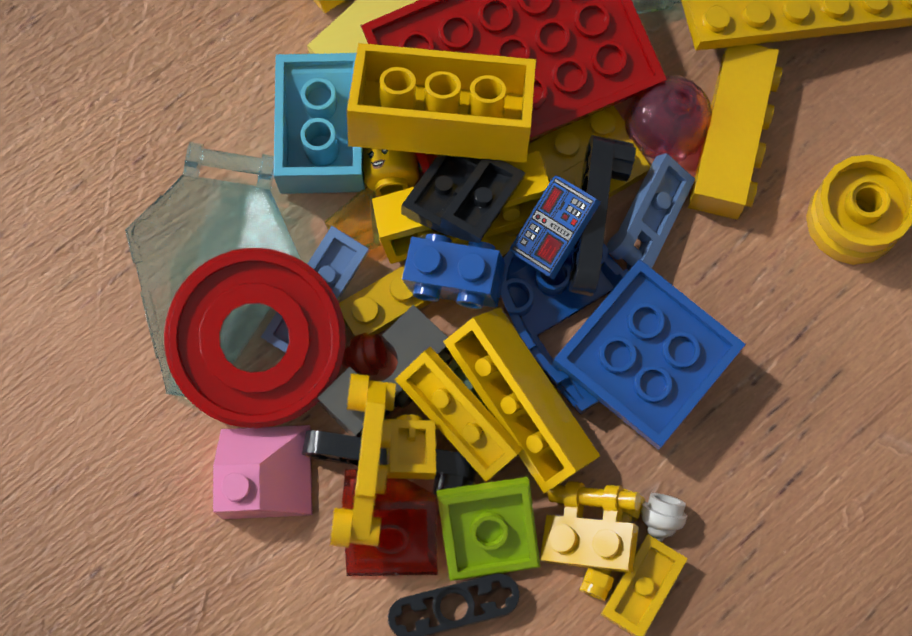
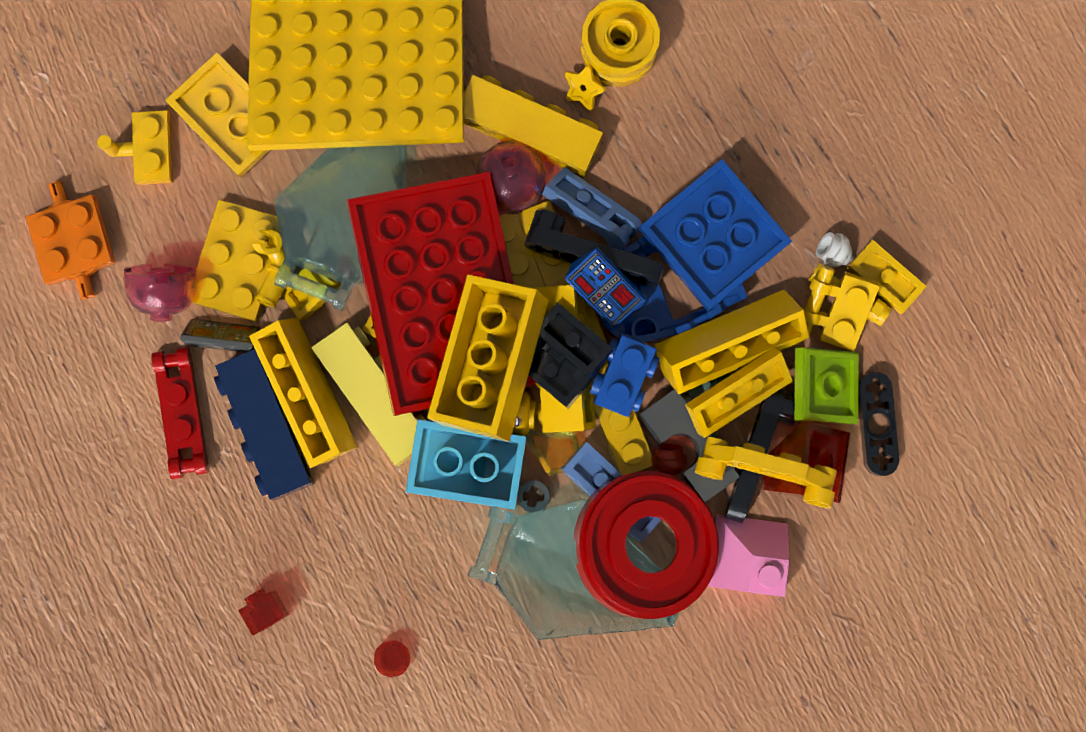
camera: 85 degrees left, 10 degrees up
(92, 90) = (392, 658): none -> clear red plate
(288, 201) = (526, 487): none -> dark grey bush
(412, 448) = (761, 430): yellow bracket -> none
(797, 183) = (592, 83): none -> yellow plate

